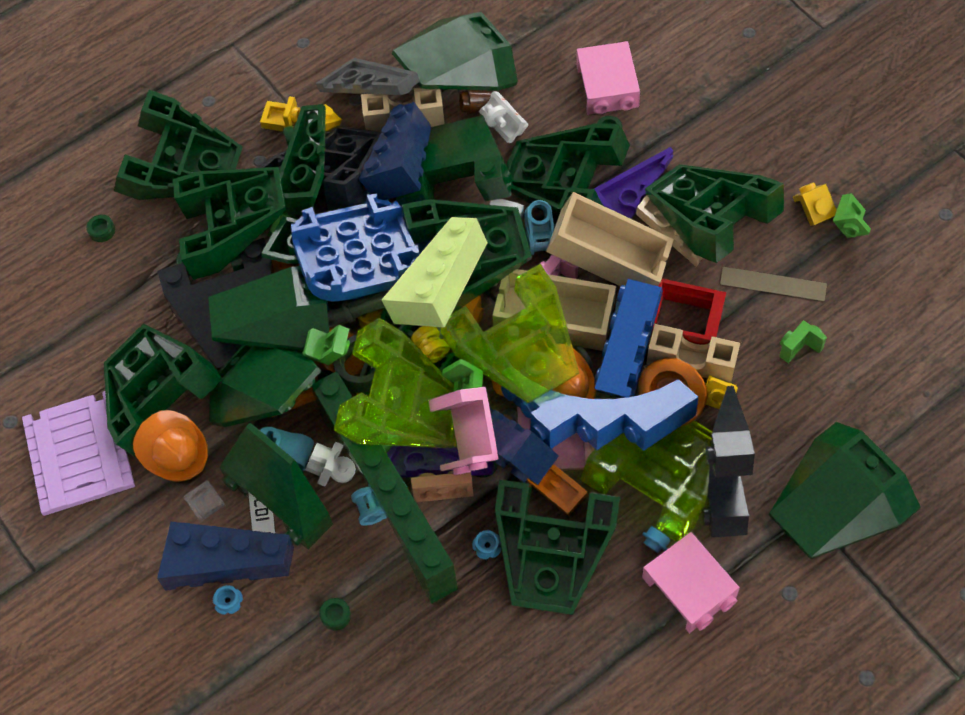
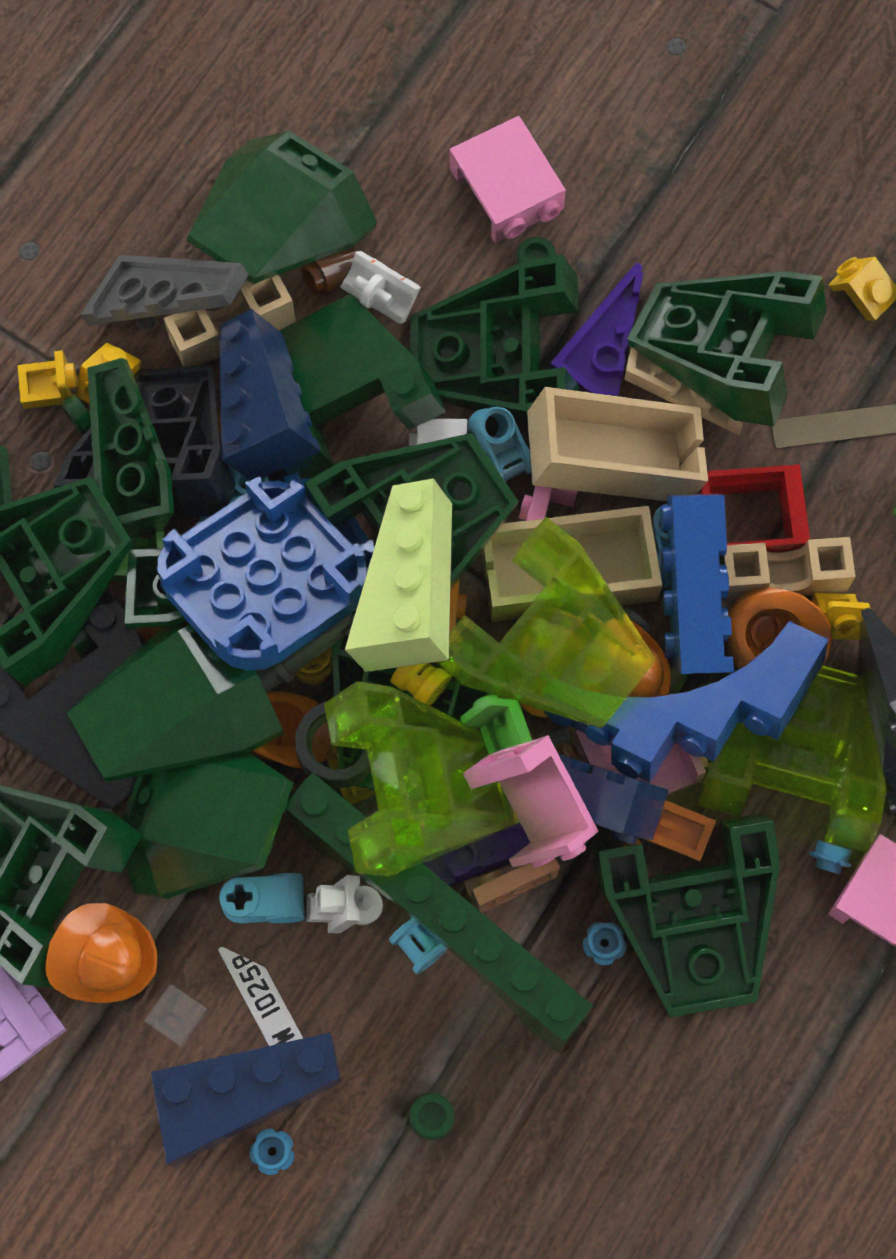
camera: 25 degrees left, 10 degrees up
(276, 480) = (281, 965): dark green wedge -> none
(327, 346) = (285, 738): bright green bracket -> none

